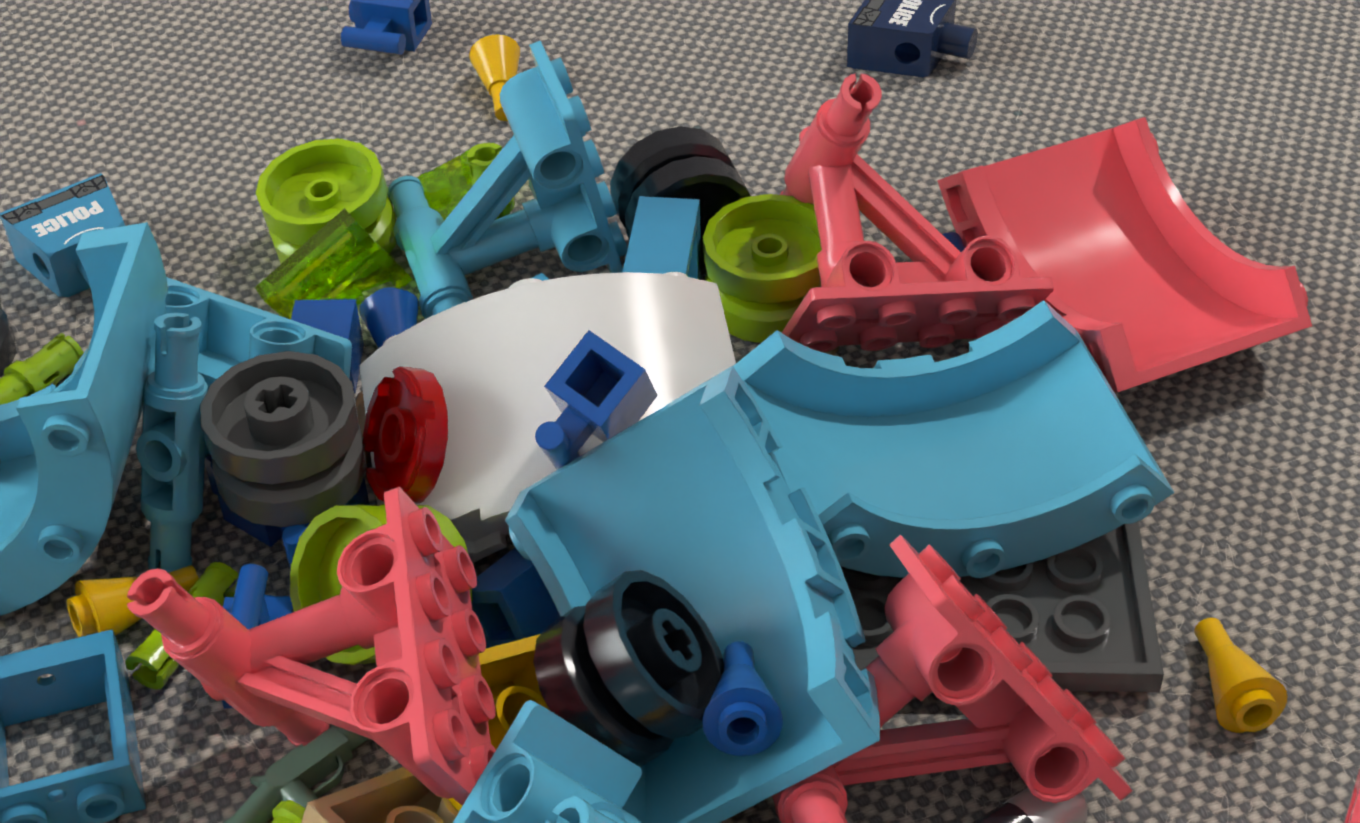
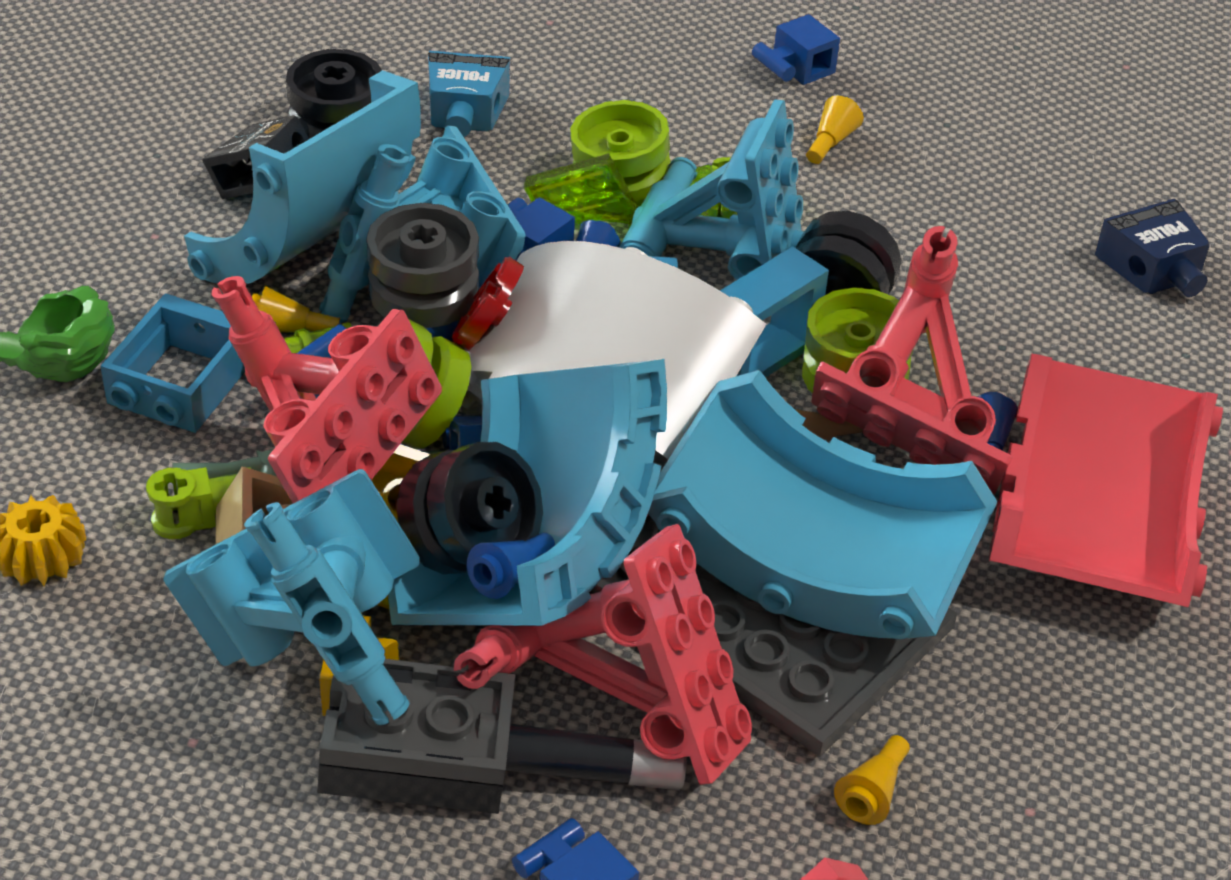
camera: 35 degrees right, 0 degrees up
(597, 394) = (590, 335): blue brick -> none

